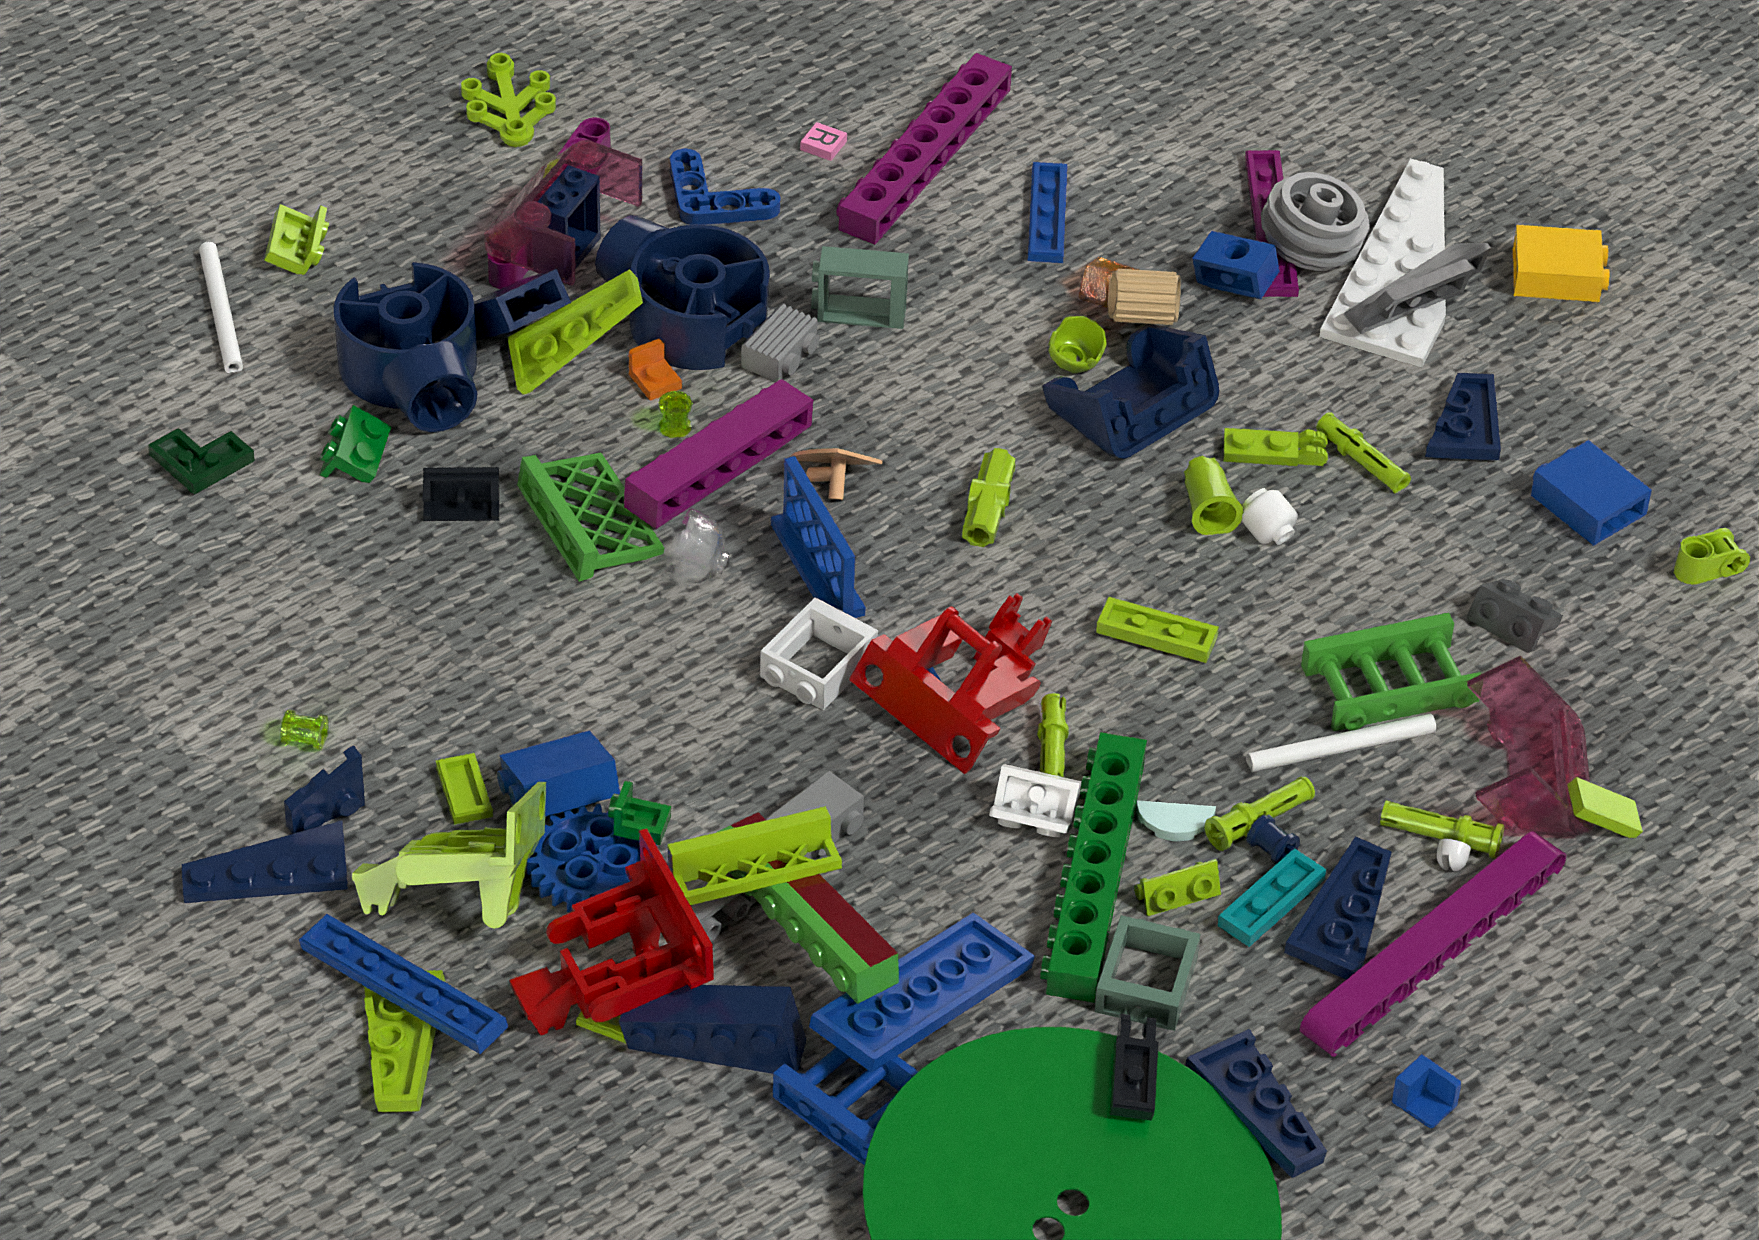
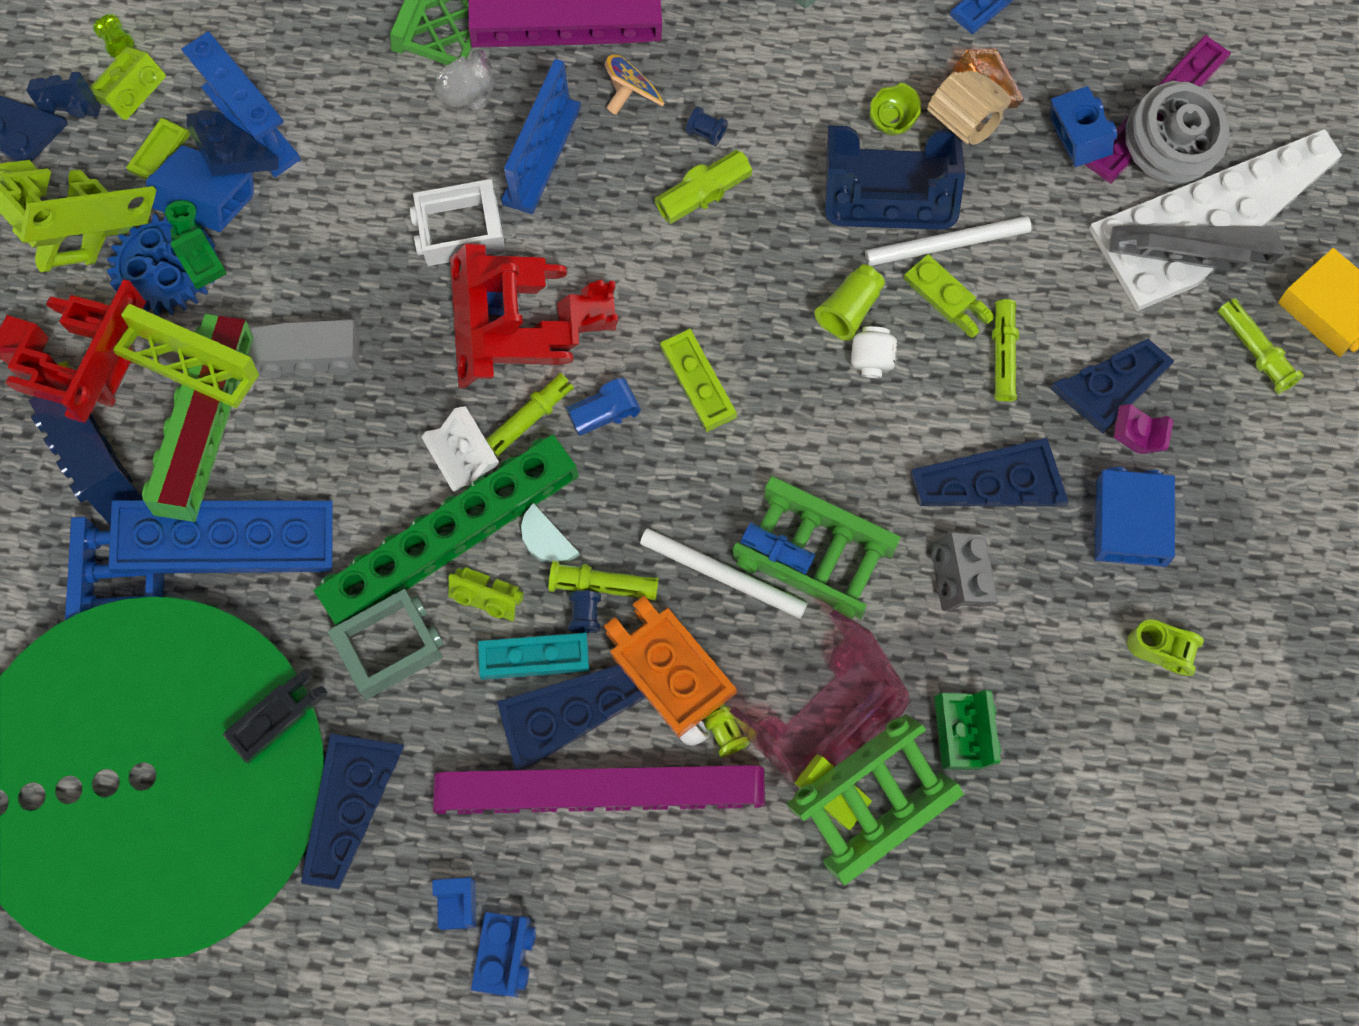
camera: 50 degrees right, 25 degrees up
(373, 742) = (127, 82): none -> lime bracket
(522, 711) = (239, 99): none -> blue fence
(538, 730) = (227, 146): none -> dark blue wing
(590, 799) = (182, 217): none -> green bush
(936, 455) = (706, 126): none -> dark blue bush
(1107, 699) = (609, 405): none -> blue piece
(1226, 411) = (948, 241): none -> white piece
(1370, 681) = (778, 548): none -> blue pin
(1384, 817) = (669, 667): none -> orange tile
(1460, 539) = (1000, 477): none -> dark blue wing
(1505, 1097) = (502, 955): none -> blue bracket
(1529, 435) = (1142, 432): none -> magenta bracket
(1553, 330) = (1269, 358): none -> lime pin
(1646, 704) = (967, 730): none -> green bracket
(1670, 779) = (896, 825): none -> bright green fence

